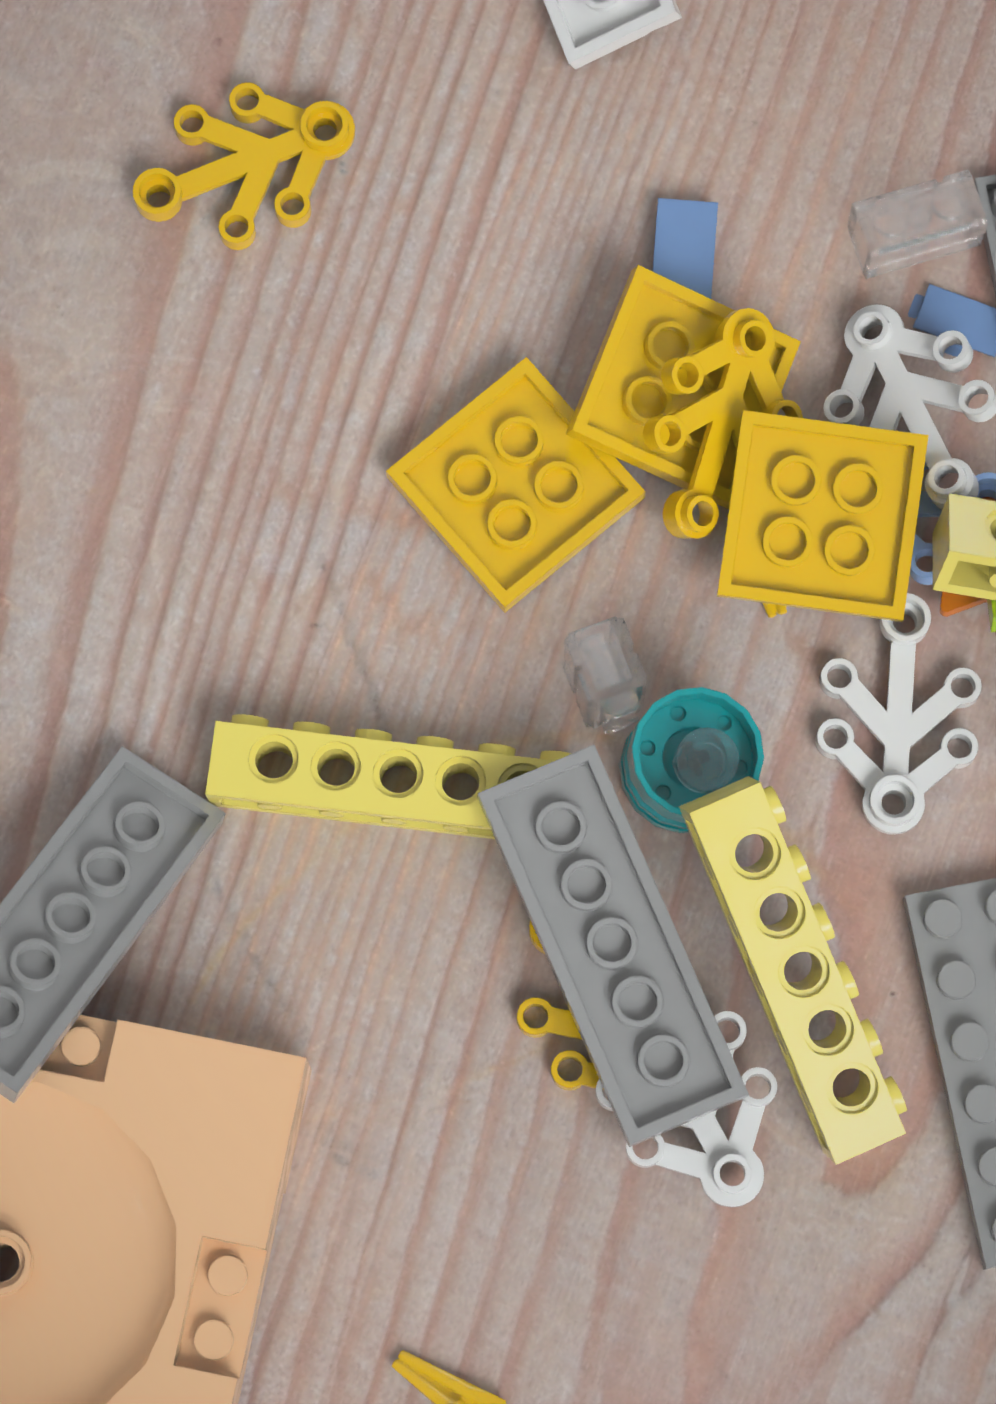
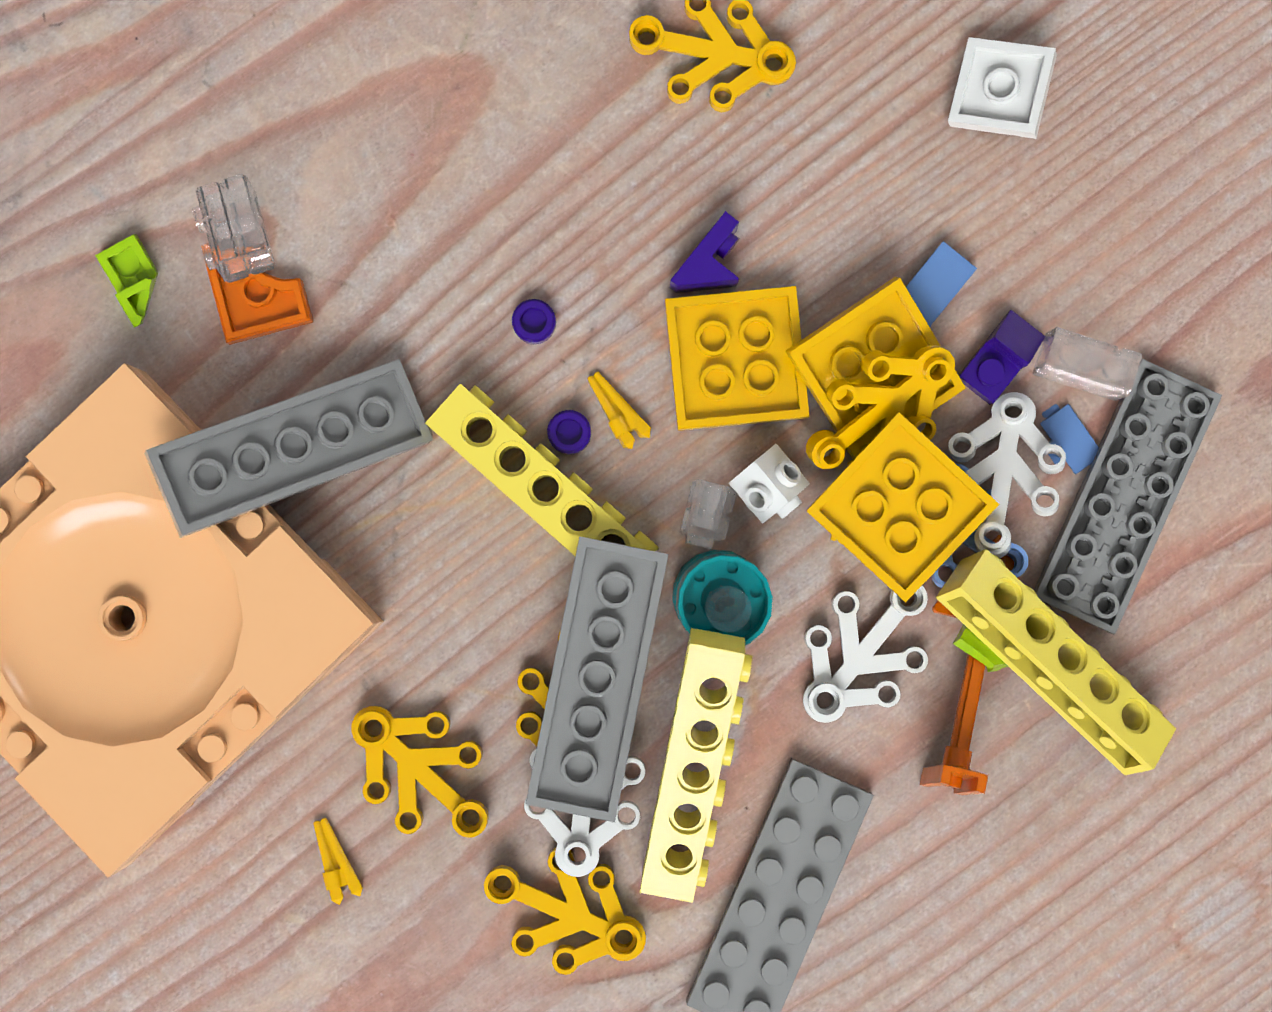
camera: 35 degrees right, 10 degrees up
(250, 601) = (534, 321): none -> dark purple tile
(379, 699) = (569, 432): none -> dark purple tile
(406, 408) = (701, 268): none -> dark purple slope
(424, 639) = (620, 414): none -> yellow piece
(467, 1210) = (414, 765): none -> yellow plant
(657, 595) = (770, 485): none -> white brick
(778, 1257) = (571, 916): none -> yellow plant
(816, 283) = (1001, 357): none -> dark purple slope

